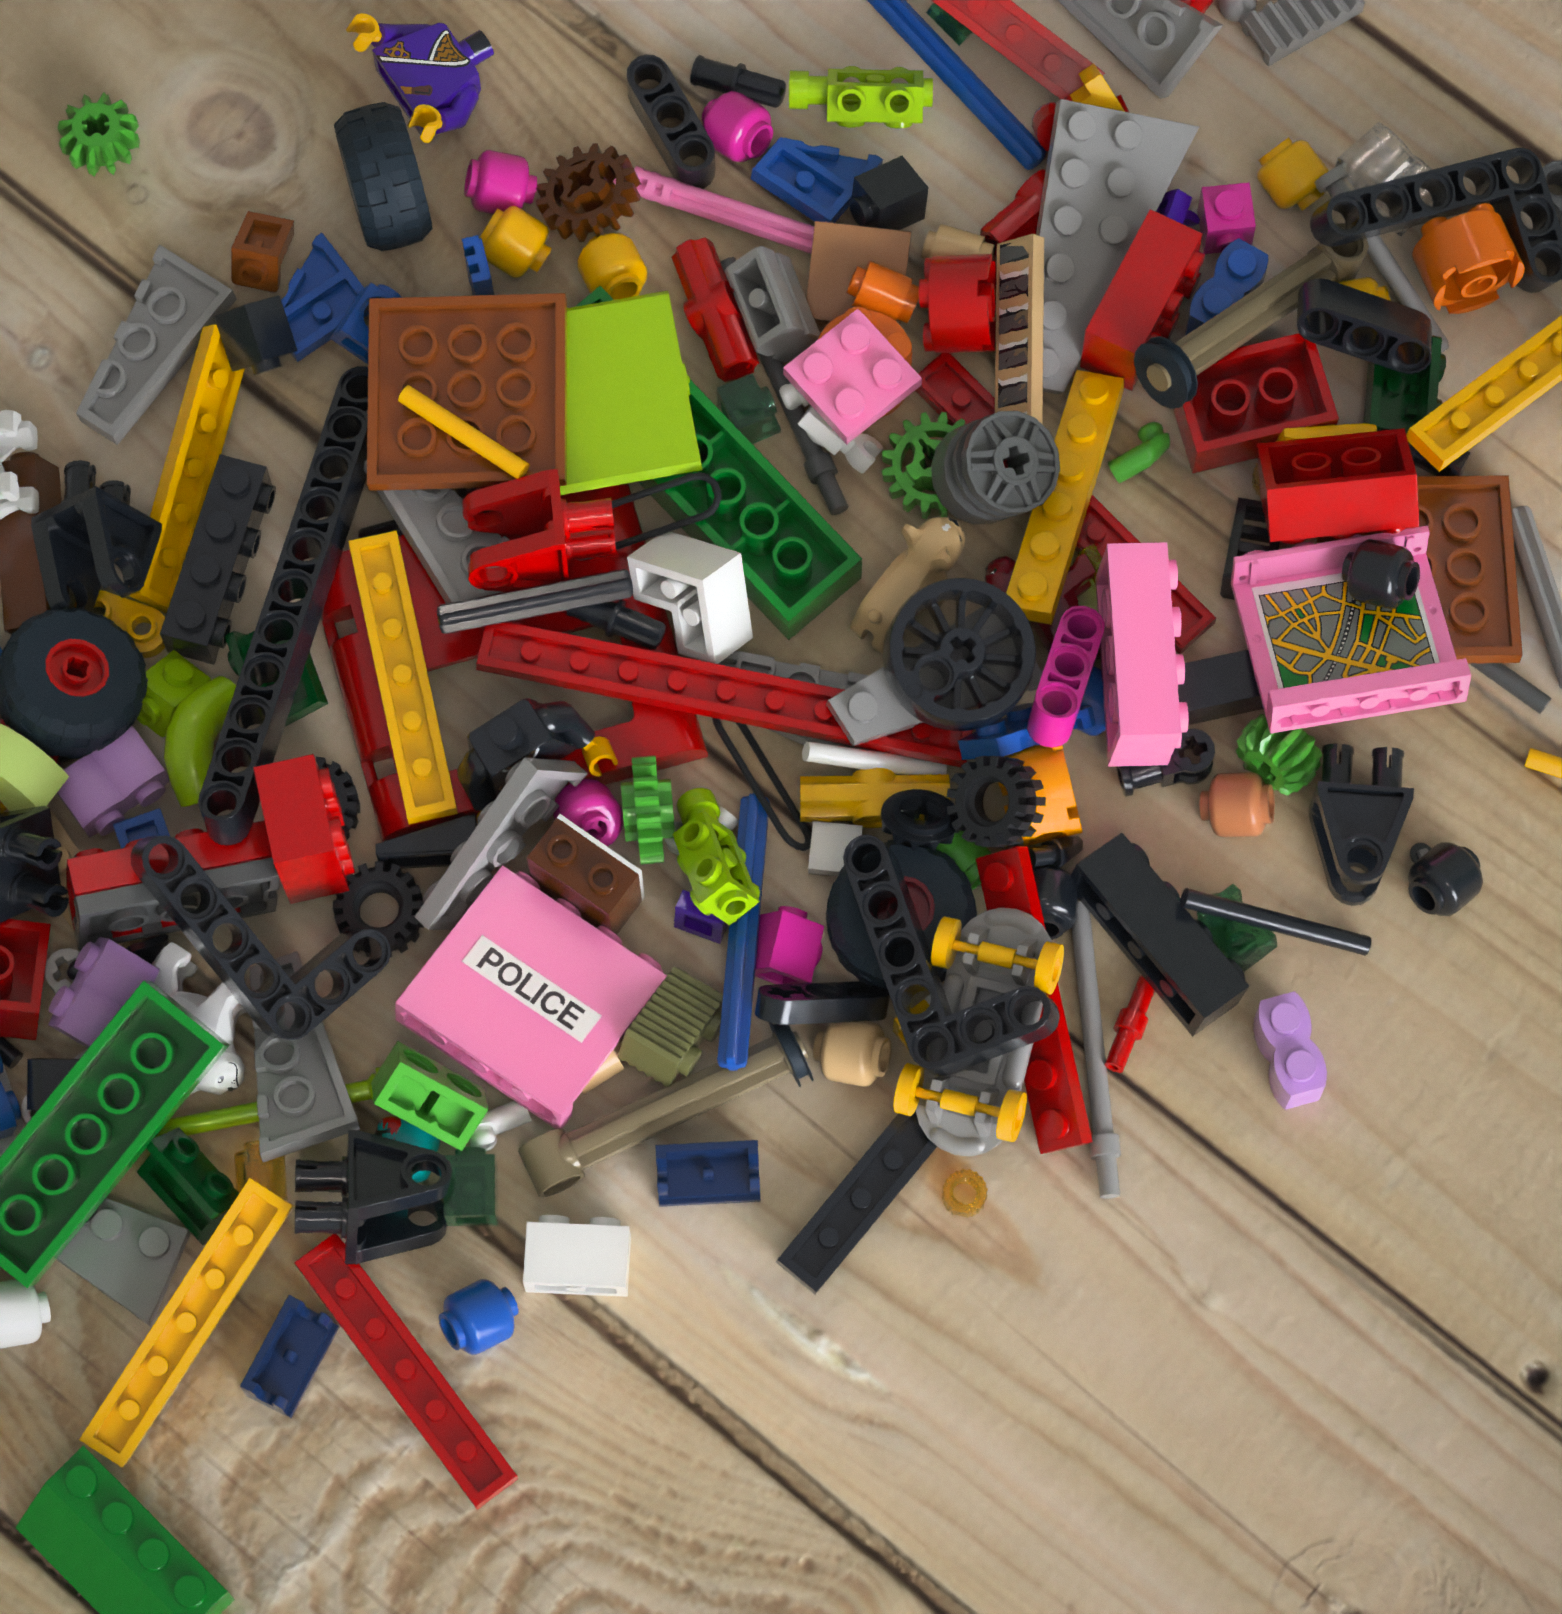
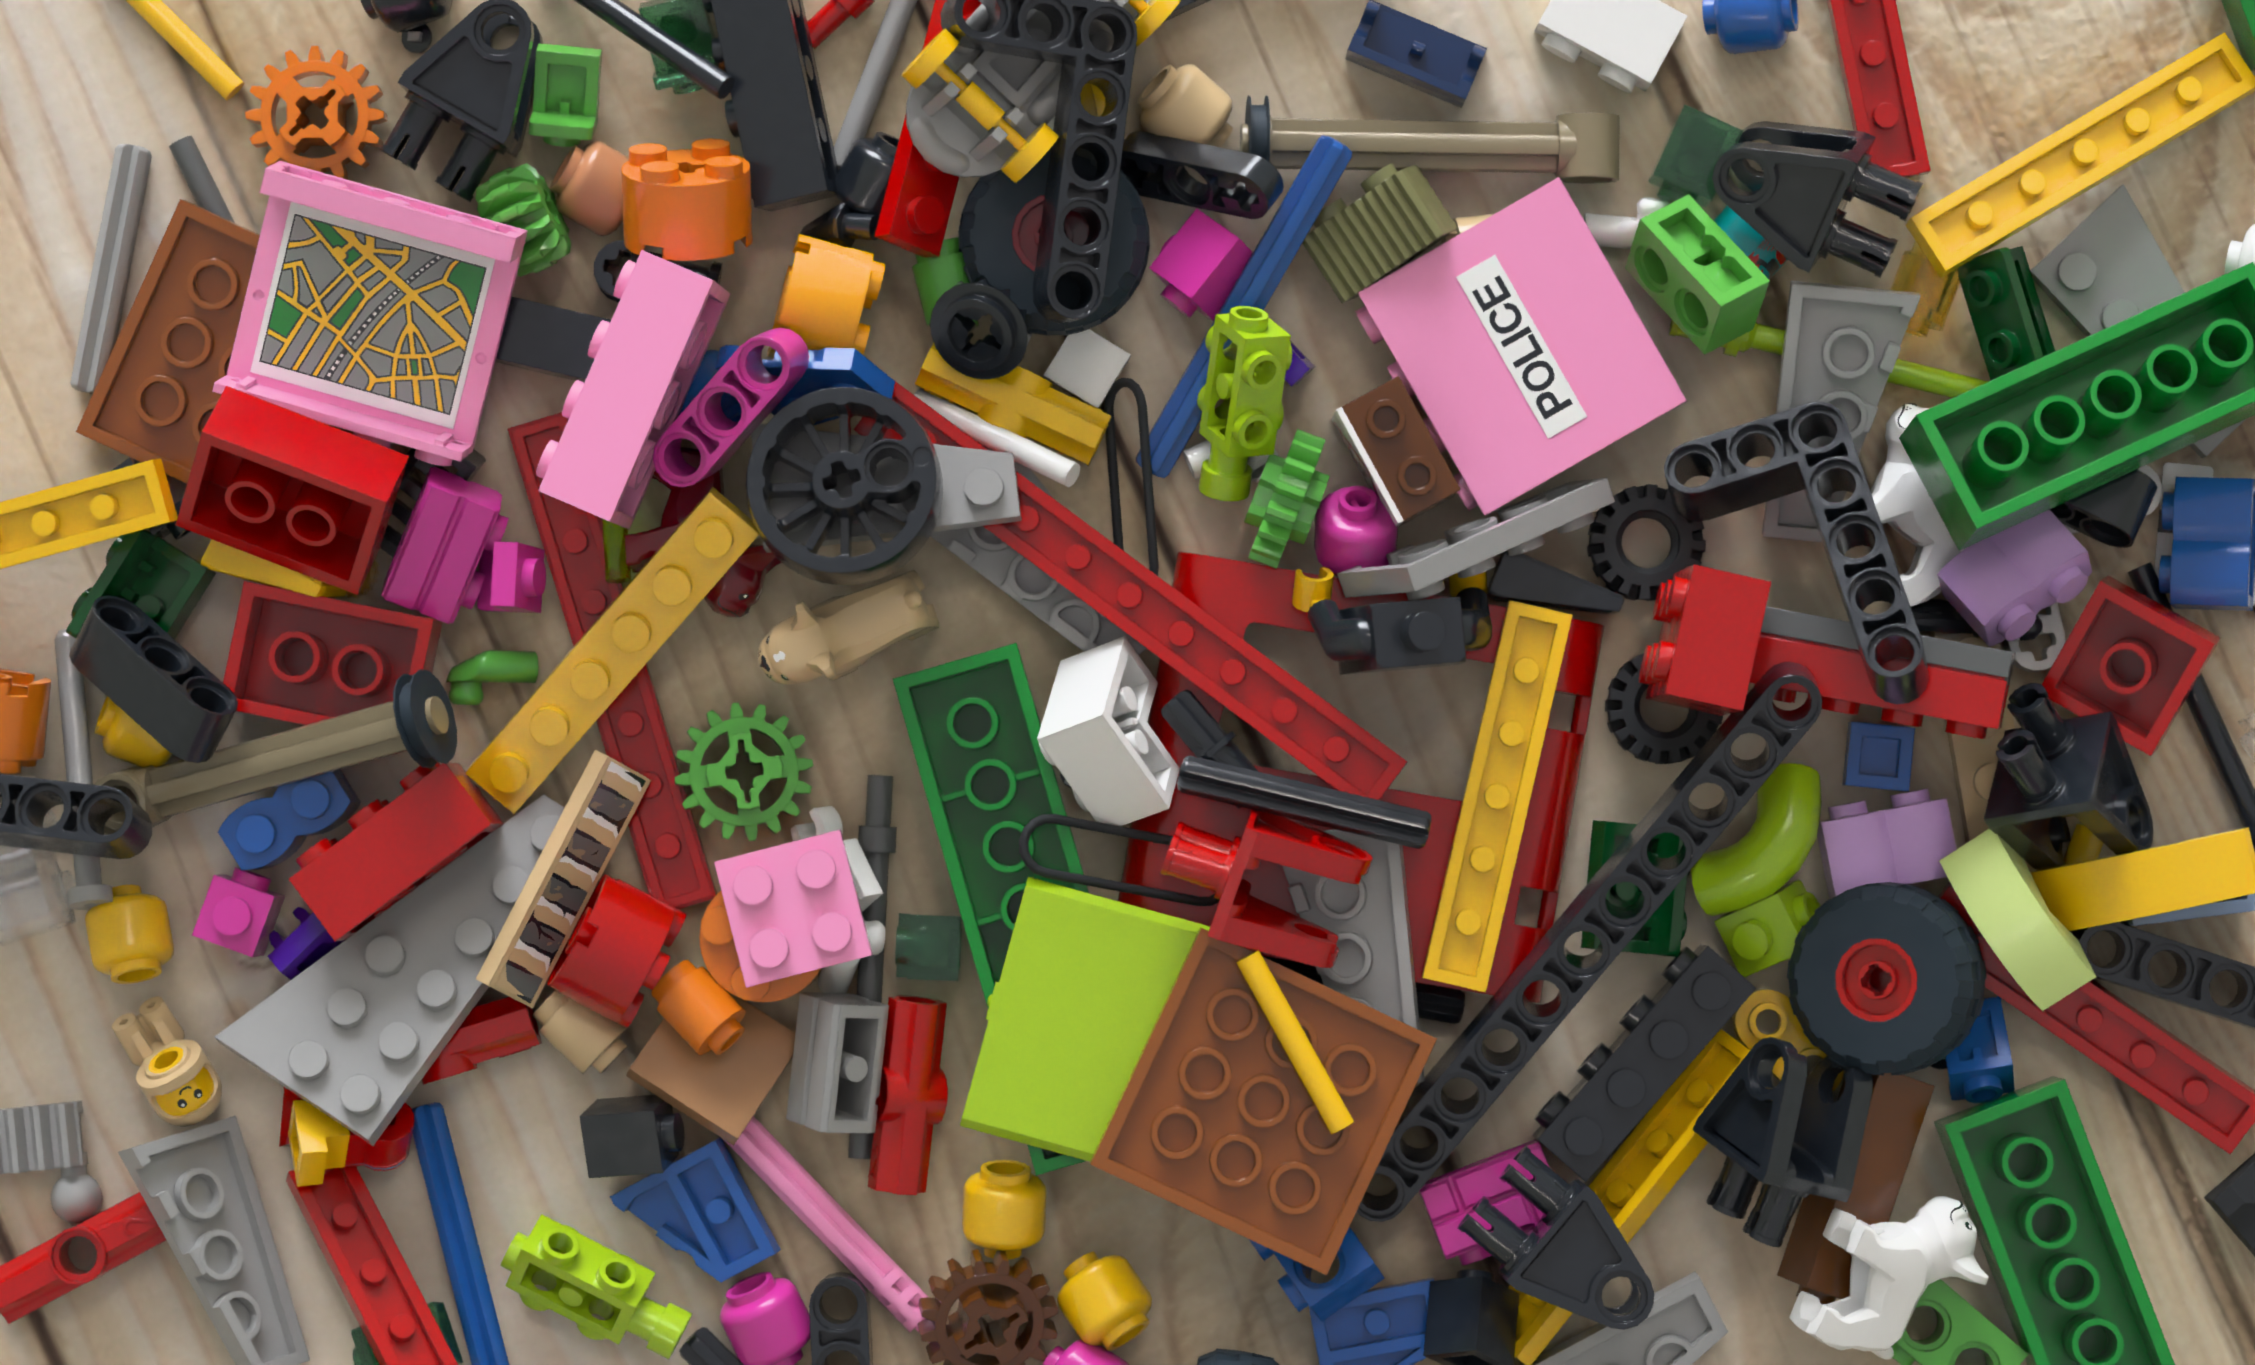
camera: 155 degrees left, 15 degrees up
(210, 389) = (1568, 1251): none -> black piece
(279, 422) = (1456, 1192): none -> dark pink brick
(289, 1357) = (1982, 68): dark blue hinge -> none
(477, 266) = (1171, 1264): blue tile -> none
(970, 797) = (919, 291): black tyre -> none
(971, 470) = (681, 710): dark grey wheel -> none
(1159, 514) = (512, 578): none -> dark pink bracket
(1171, 810) = (686, 200): none -> orange brick
(1215, 101) = (171, 1070): none -> tan piece
(1216, 511) = (444, 545): none -> dark pink brick
(1295, 856) = (565, 94): none -> bright green bracket
(1381, 574) = (298, 358): black head -> none
(1479, 766) = (336, 93): none -> orange gear

